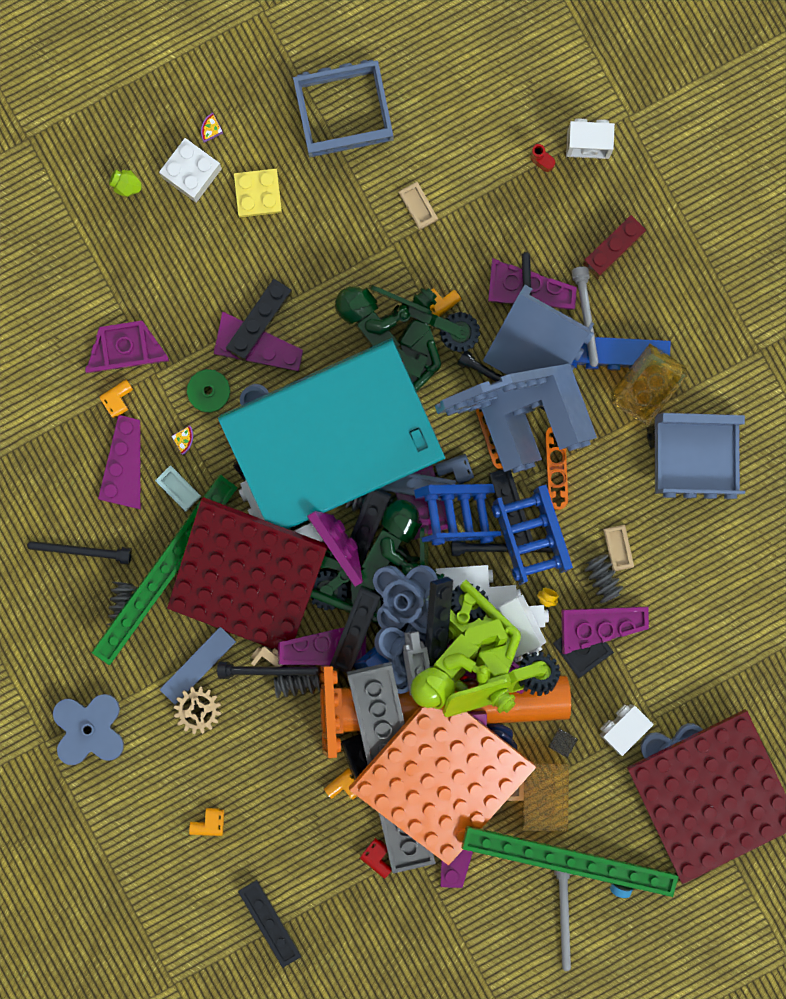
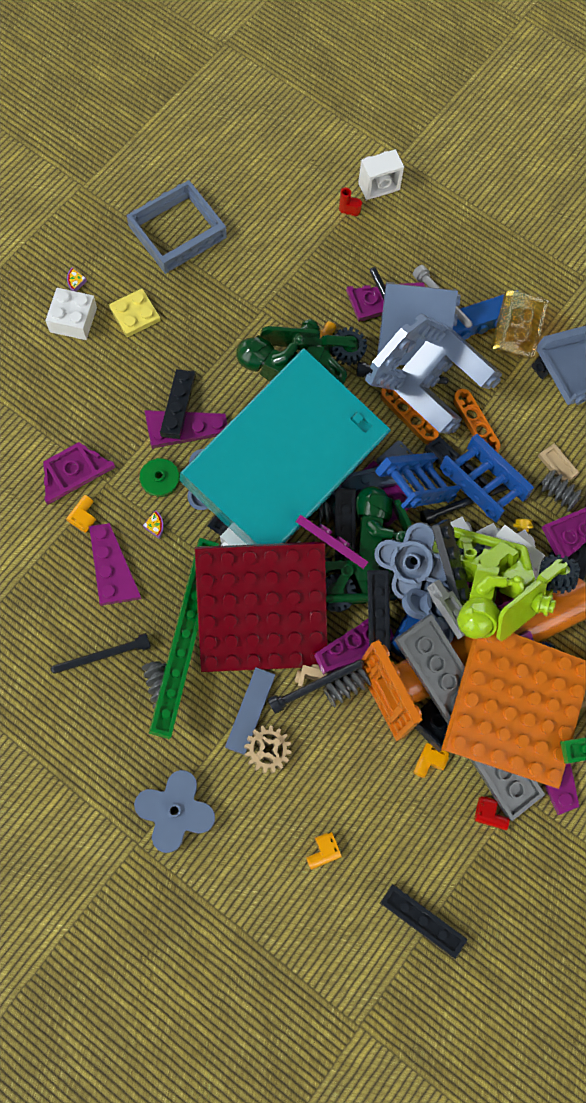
camera: 30 degrees left, 15 degrees down
(125, 183) = (20, 343): lime rock -> none
(178, 488) = (167, 567): light aqua tile -> none
(418, 205) = (268, 274): tan tile -> none
(614, 247) = (437, 242): dark red brick -> none

